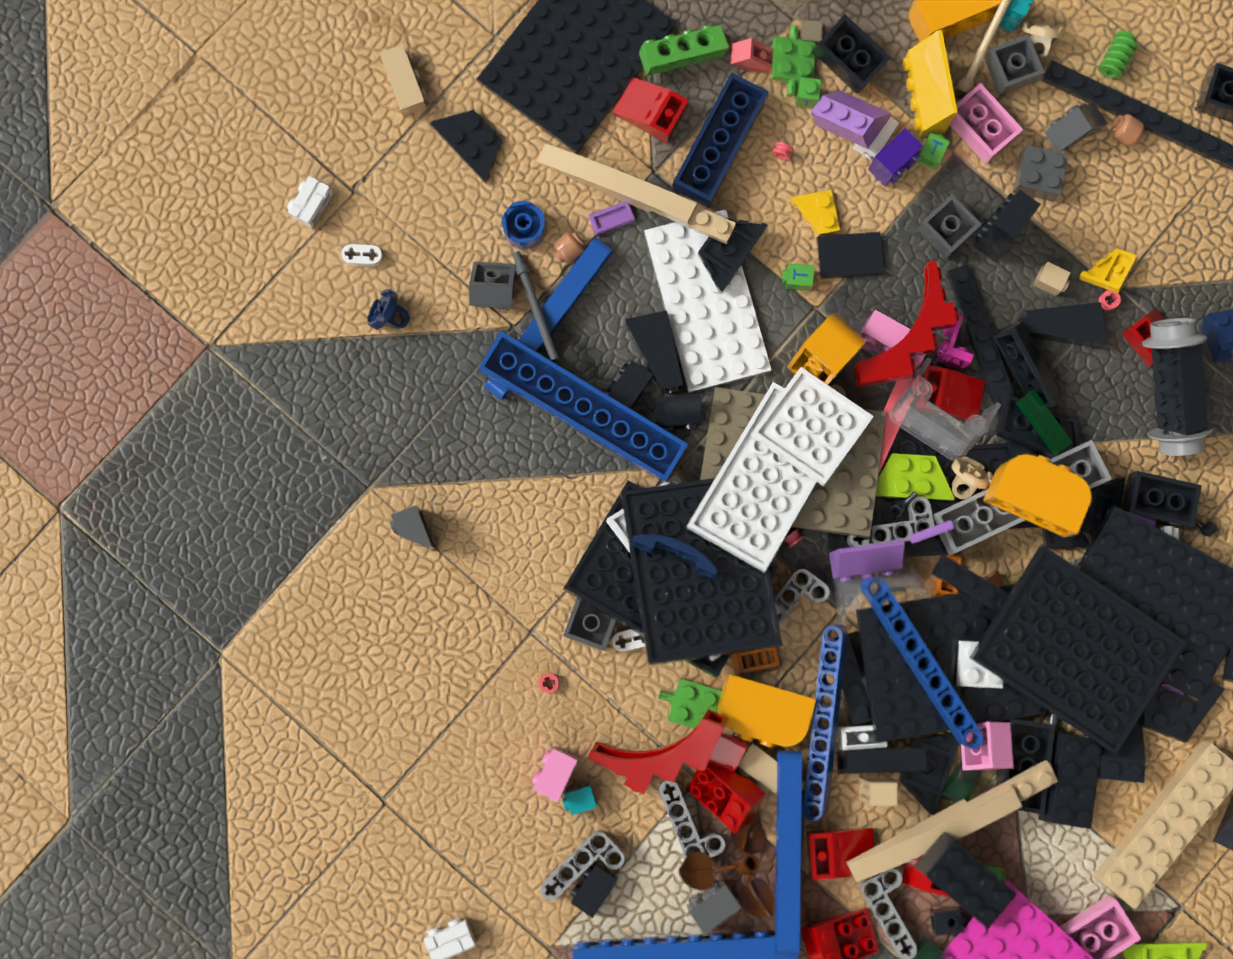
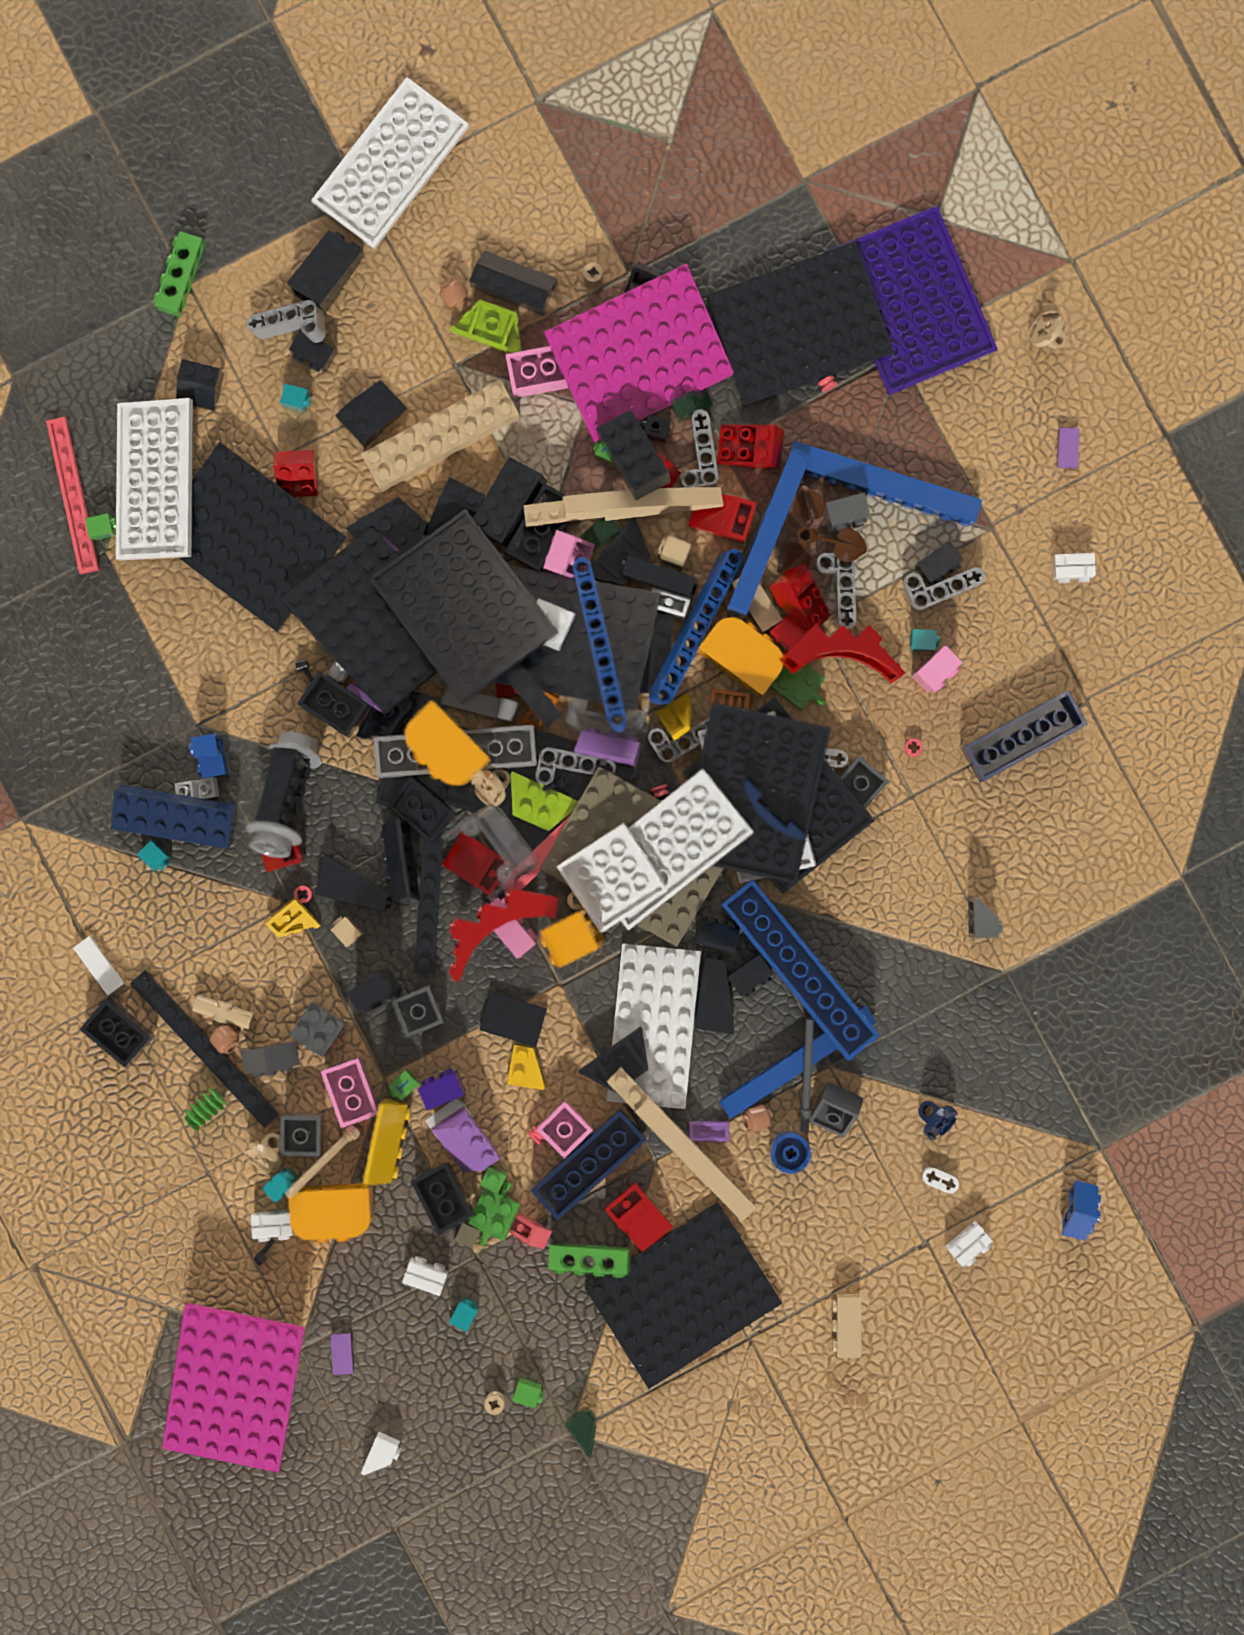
camera: 155 degrees left, 5 degrees up
(207, 275) = (1082, 1210): none -> blue brick
(437, 738) = (1024, 736): none -> brick
(471, 140) = (806, 1248): black wing -> none
(757, 165) = (564, 1128): none -> bright pink brick
(798, 277) = (567, 1016): bright green brick -> none
(806, 621) = (677, 716): none -> yellow wing
(932, 531) = (545, 750): medium lavender tile -> none
(950, 356) = (459, 894): dark pink bracket -> none
(1004, 558) = (483, 705): none -> light grey beam
(1044, 422) = (410, 807): dark green tile -> none
(1140, 156) = (223, 1011): none -> tan piece

